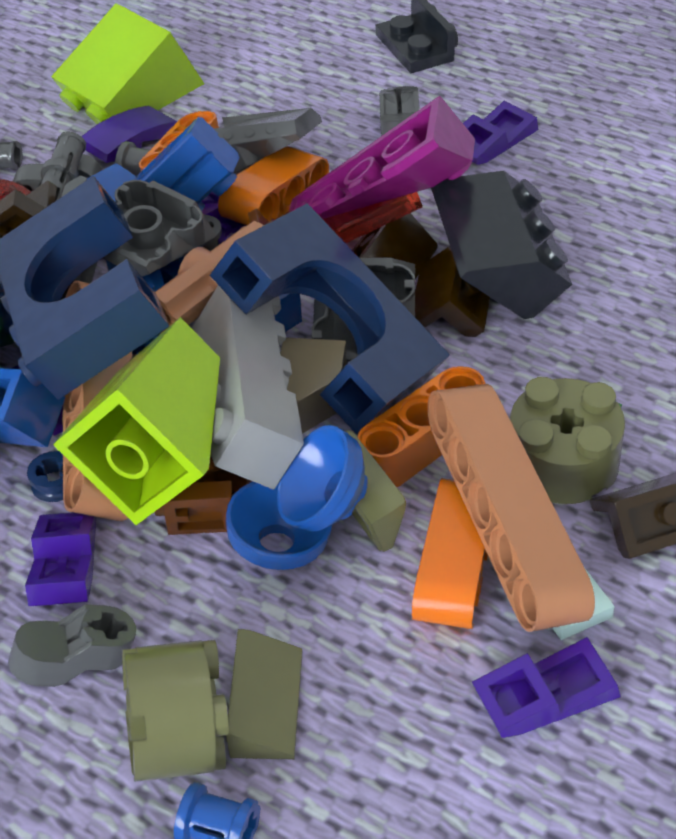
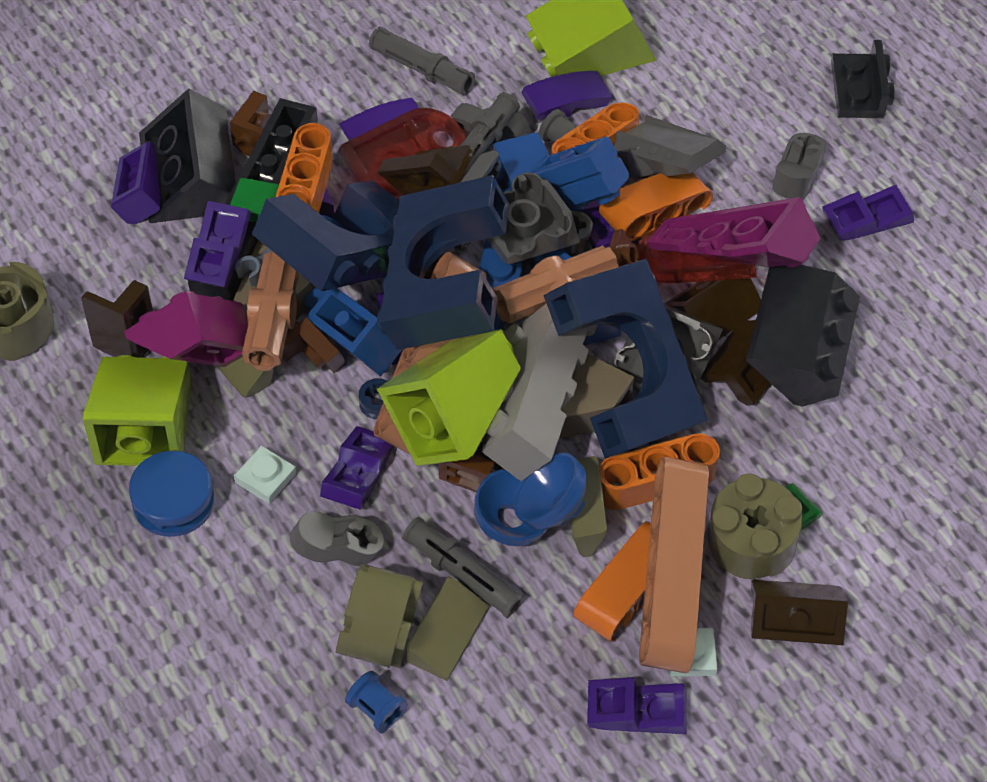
camera: 20 degrees right, 10 degrees up
(184, 601) = (423, 536): none -> dark grey pin

